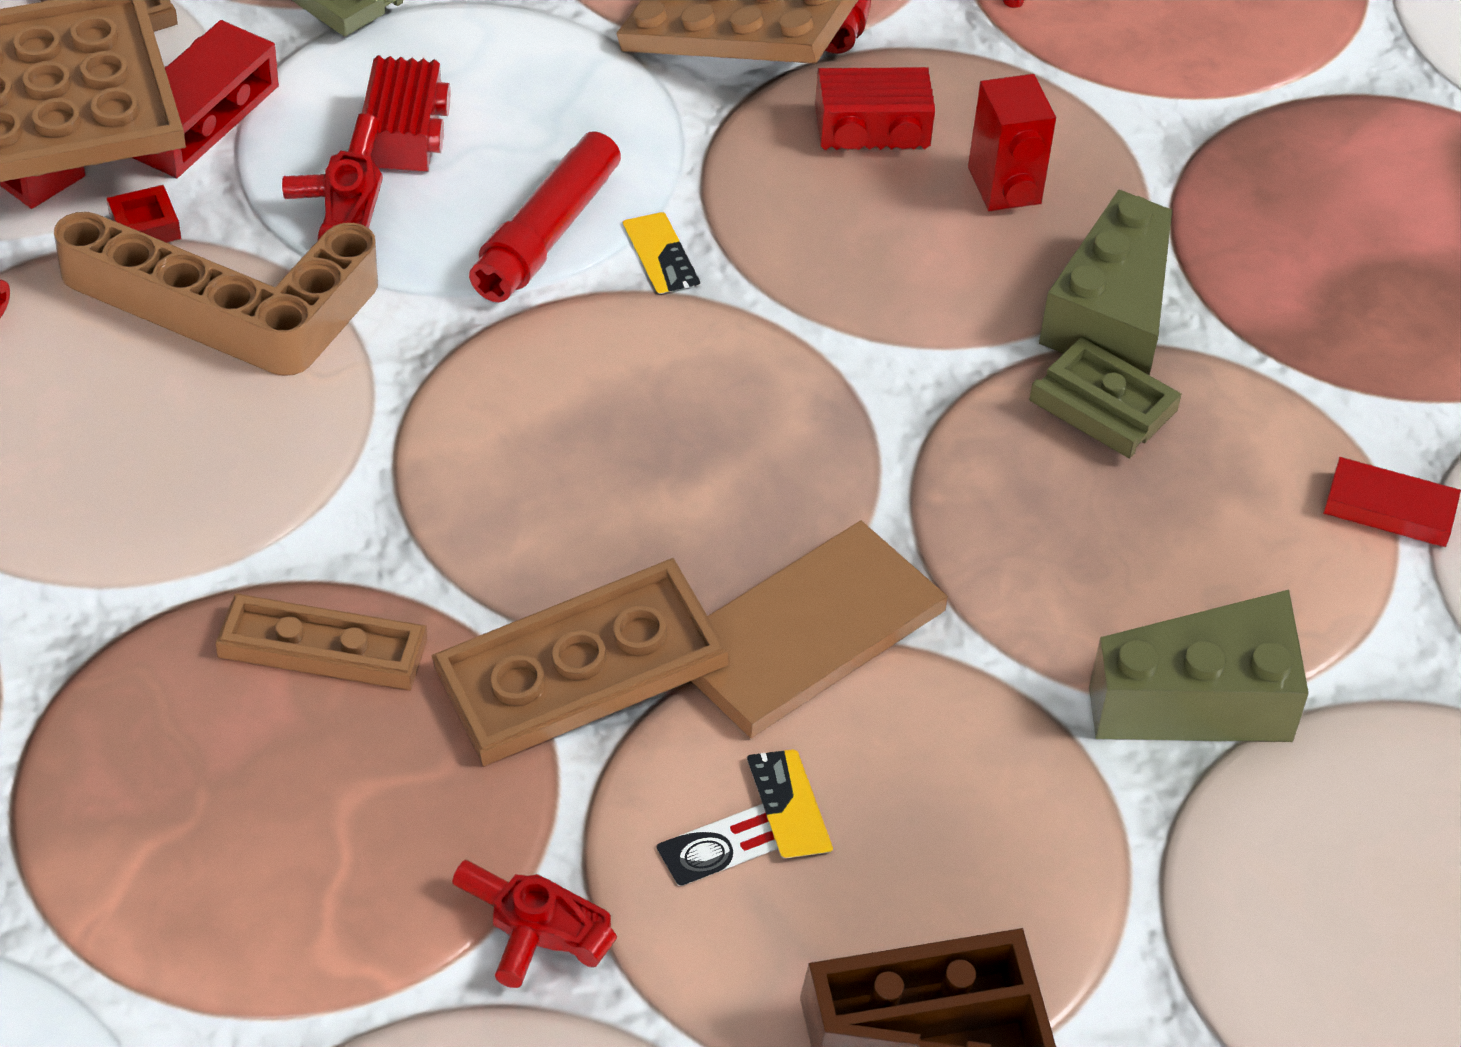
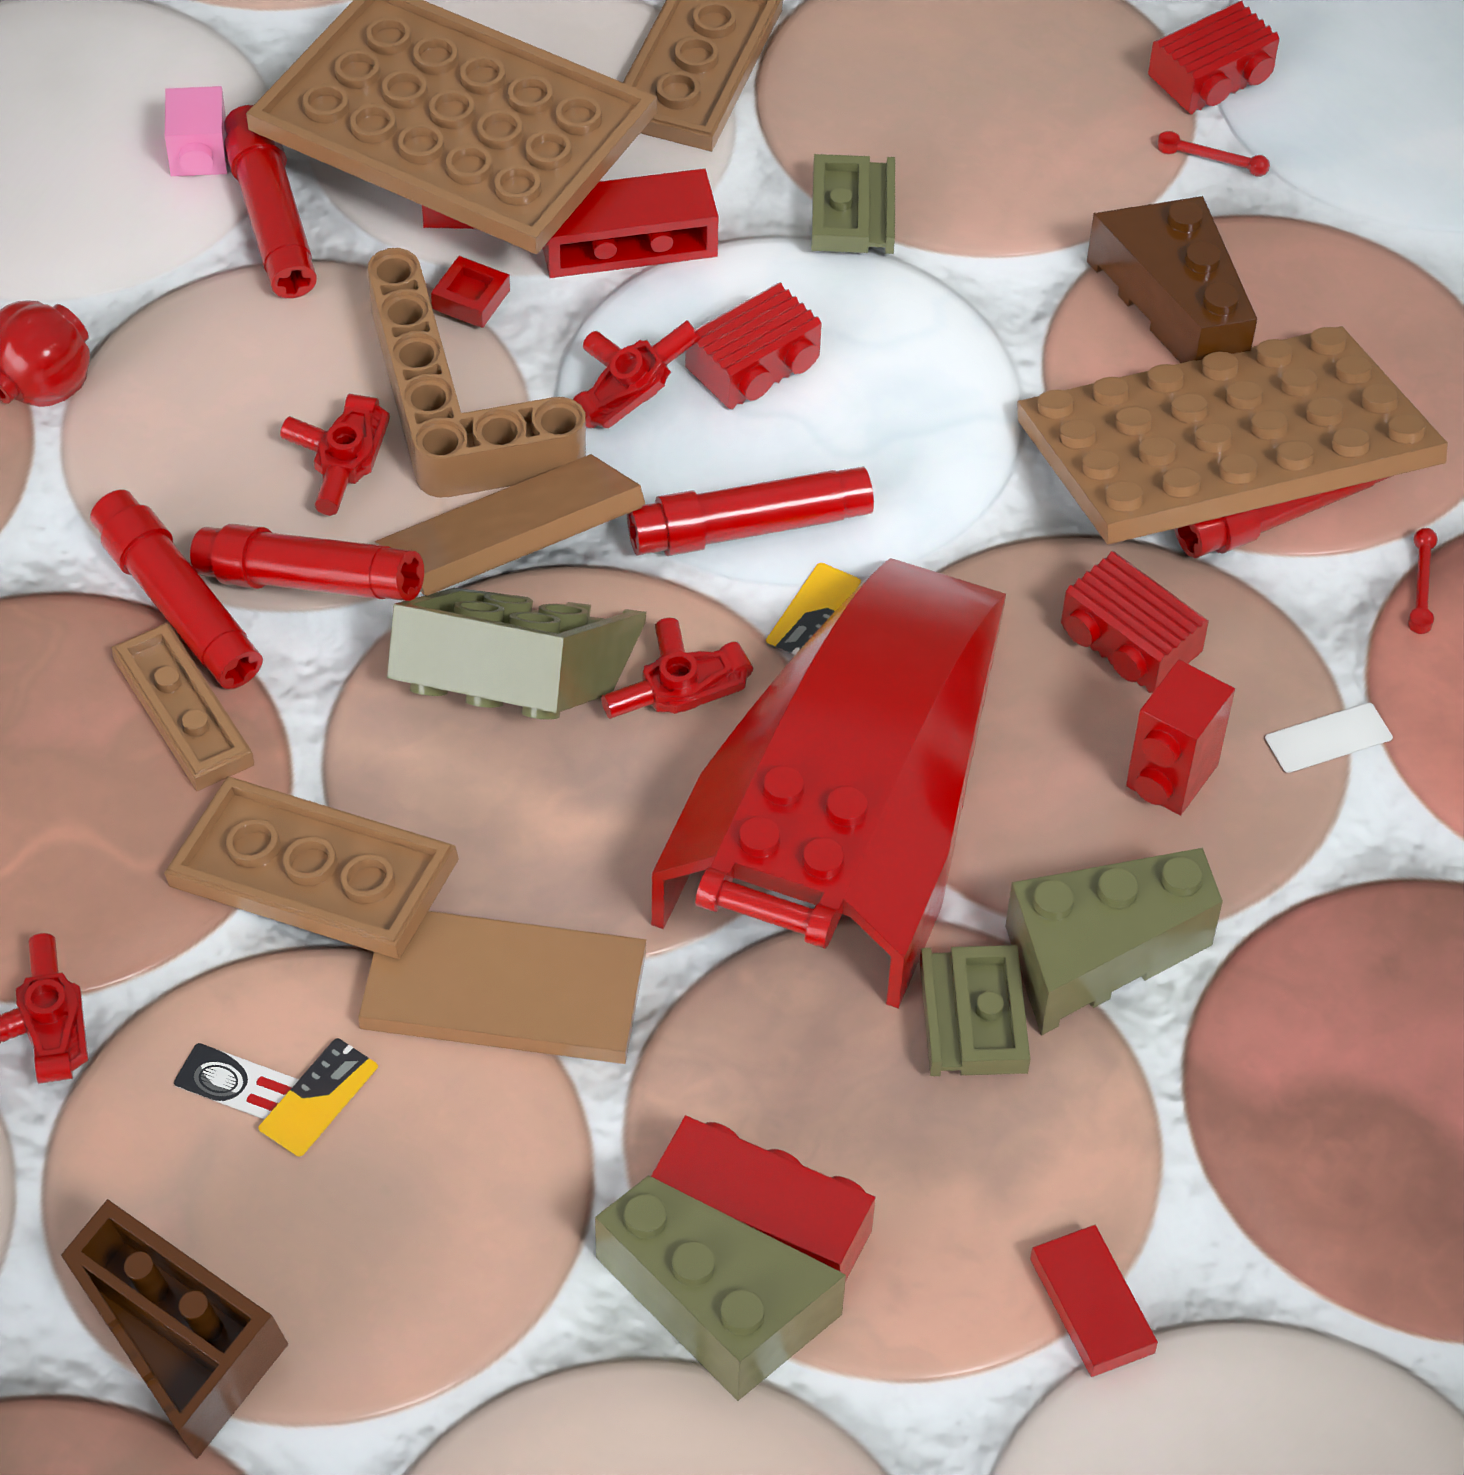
camera: 50 degrees right, 5 degrees up
(145, 557) = (147, 552): none -> red piece
(200, 381) = (344, 450): none -> red piece
(249, 494) = (260, 558): none -> red piece
(401, 339) = (517, 521): none -> medium nougat tile
(524, 416) = (507, 652): none -> wedge
(649, 351) = (681, 679): none -> red piece
(851, 314) = (848, 772): none -> red windscreen
(1063, 91) = (1328, 737): none -> white sticker
(1151, 593) = (769, 1192): none -> red brick

